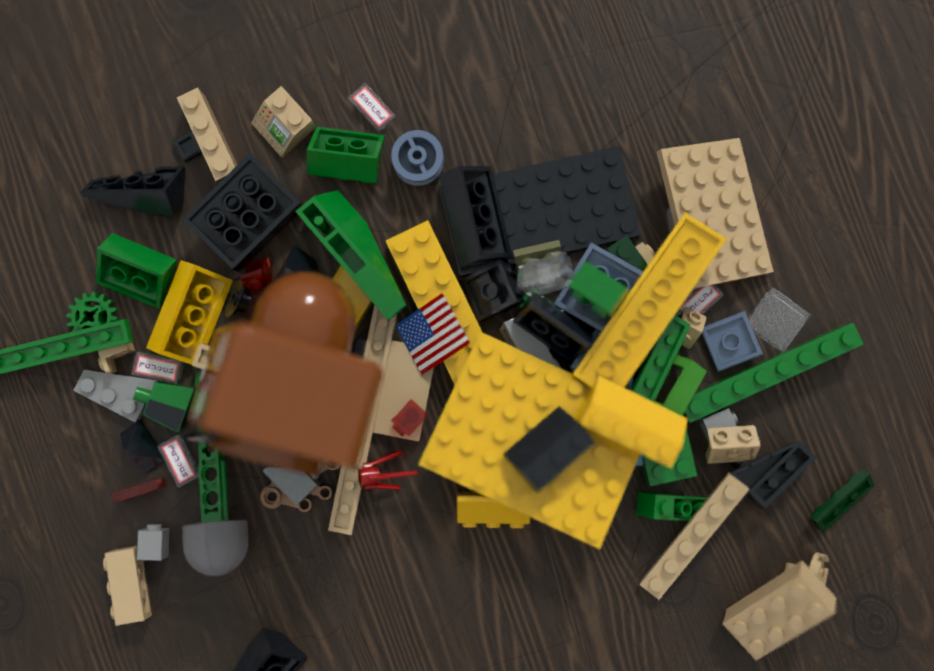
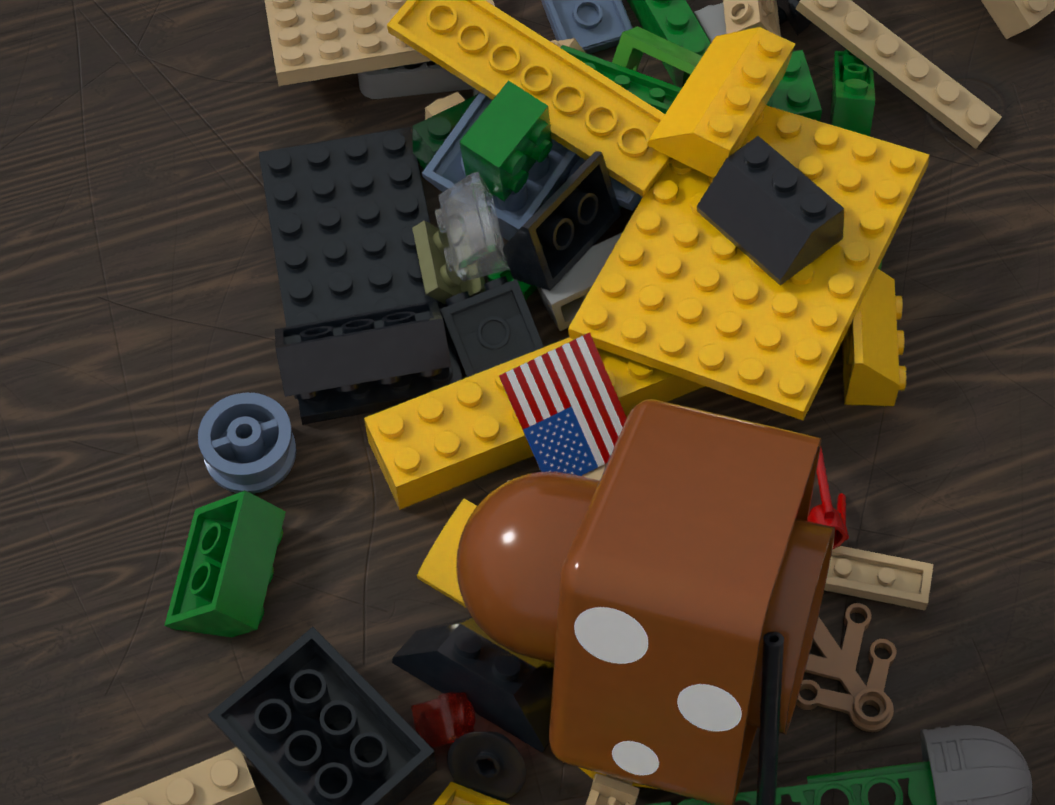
camera: 90 degrees left, 25 degrees down
(282, 122) = (149, 677): tan slope -> none
(292, 484) = (840, 655): flat silver slope -> none
(354, 247) = (398, 550): green wedge -> none
(372, 107) = (141, 526): tile -> none

